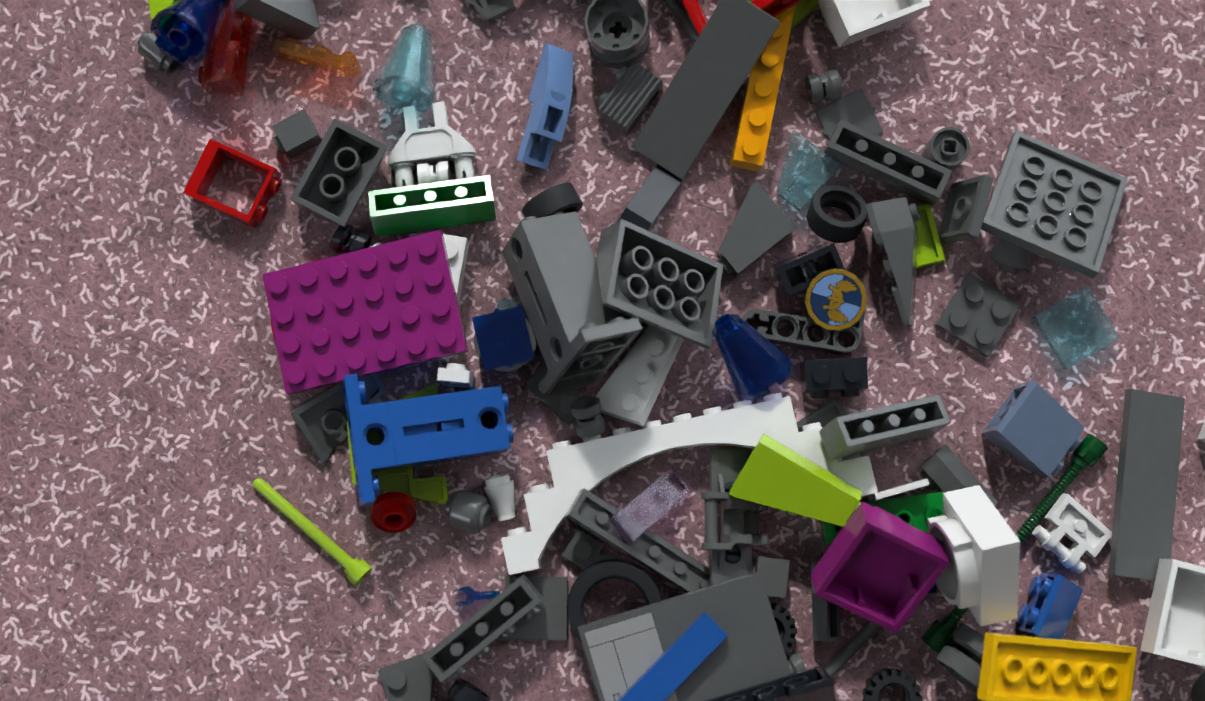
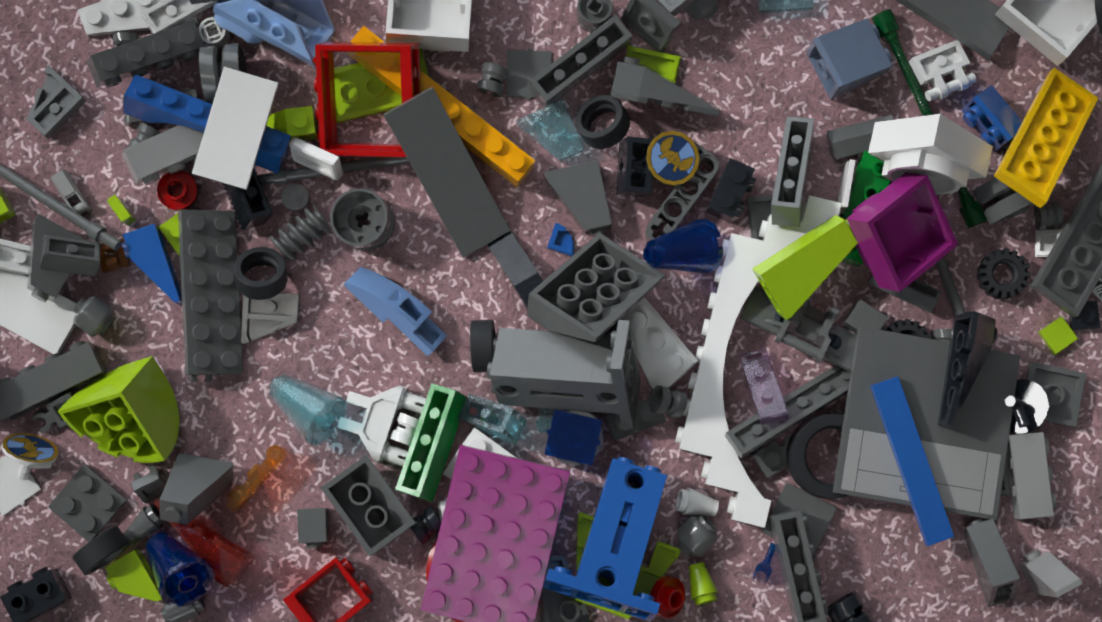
camera: 65 degrees left, 0 degrees up
(422, 541) = (701, 584): none -> lime cone
(456, 376) = (583, 491): white plate -> none
(485, 253) = (493, 418): none -> clear light blue slope
(629, 98) = (422, 238): dark grey brick -> none
(697, 234) = (561, 241): none -> blue tile
(977, 315) = (736, 54): dark grey plate -> none

